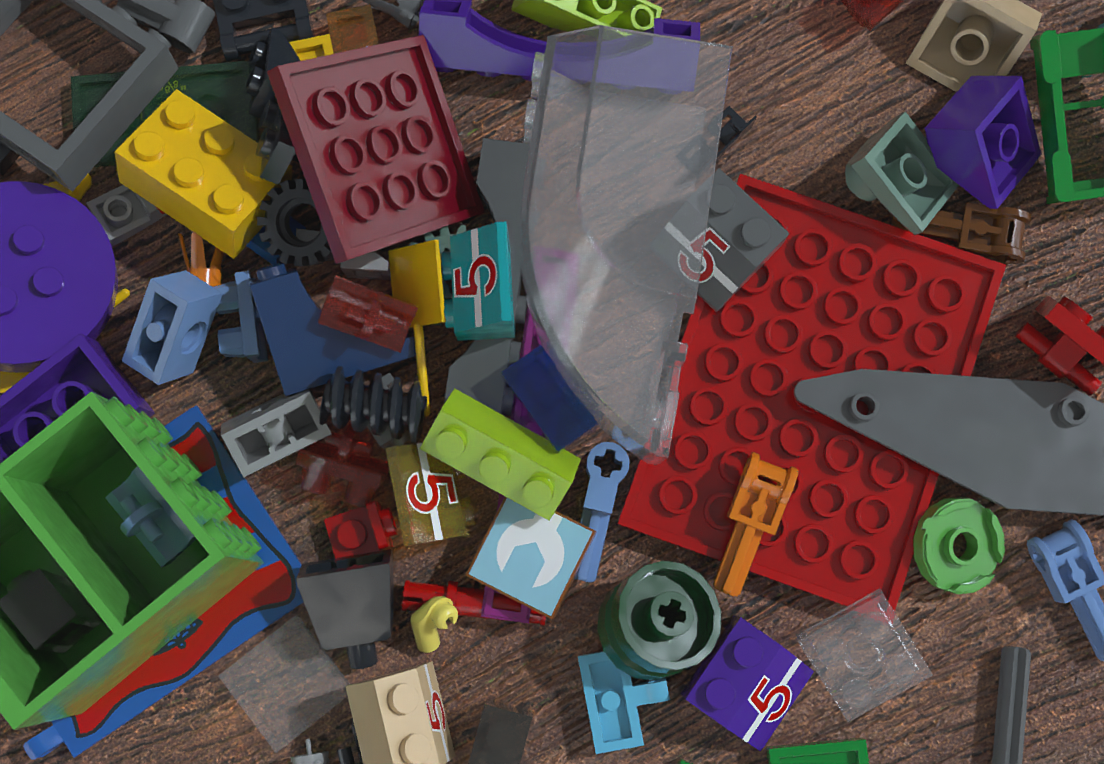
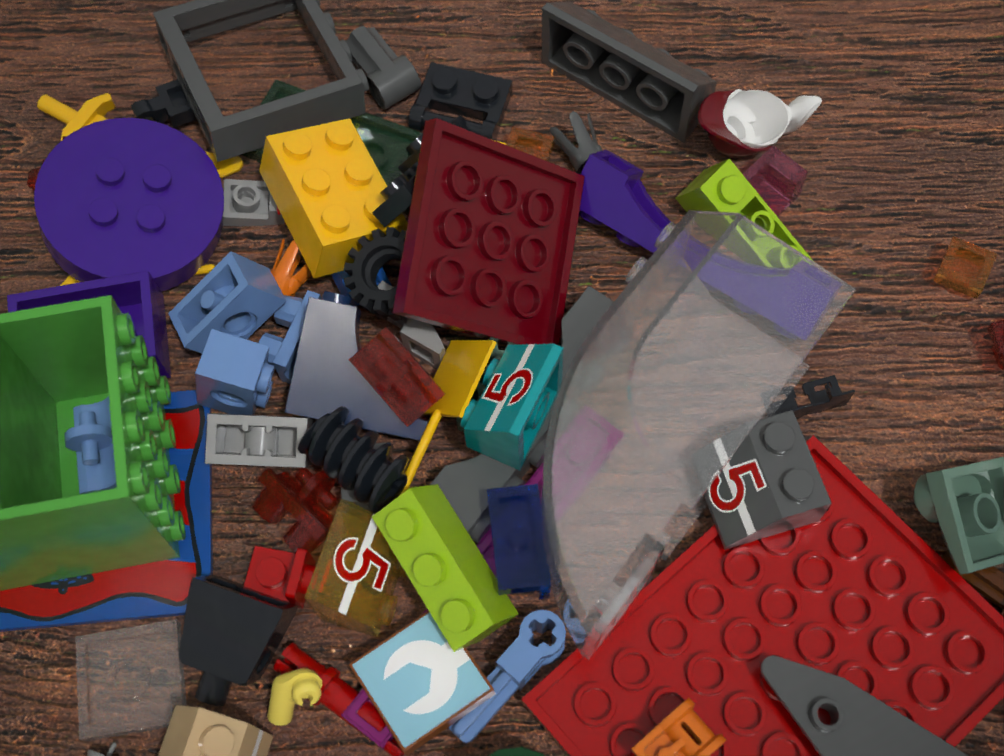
camera: 30 degrees right, 15 degrees down
(219, 385) = (233, 374): none -> medium blue brick

